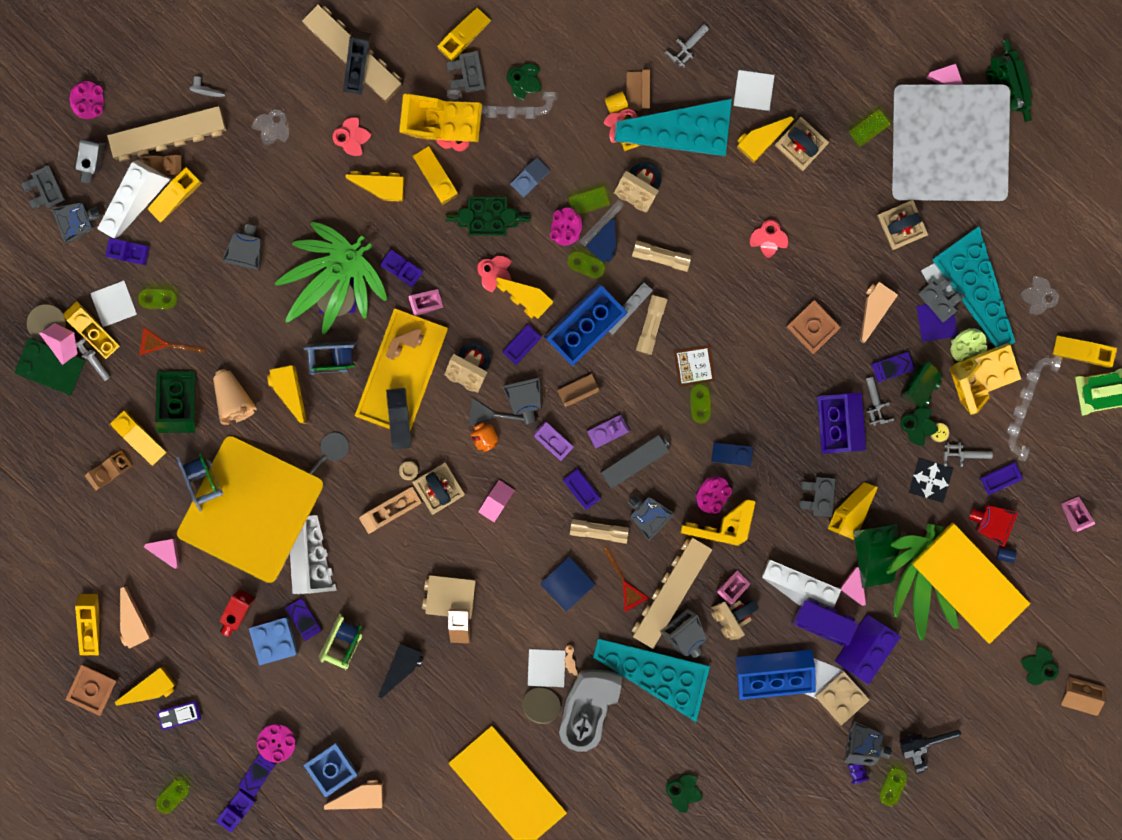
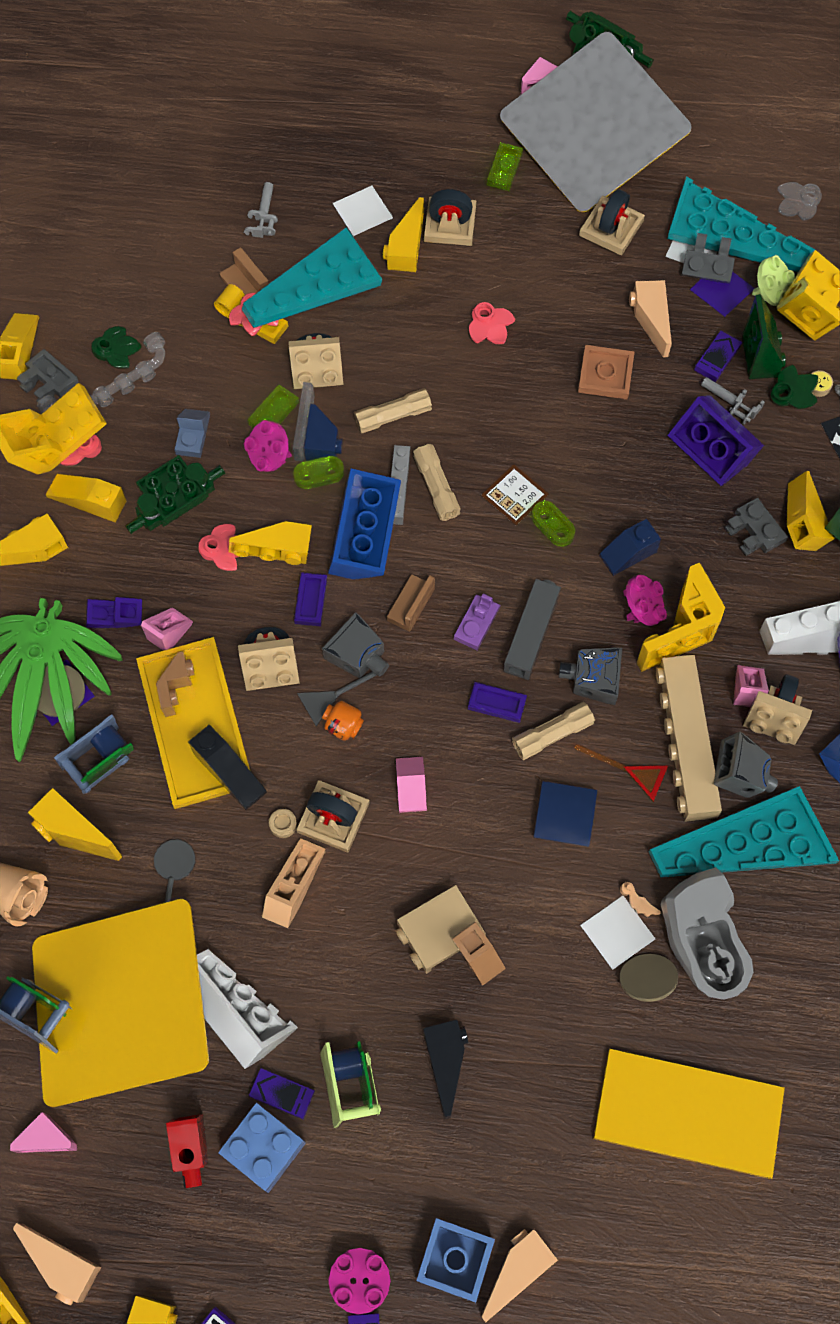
camera: 40 degrees left, 20 degrees down
(553, 441) = (424, 670): medium lavender plate -> none

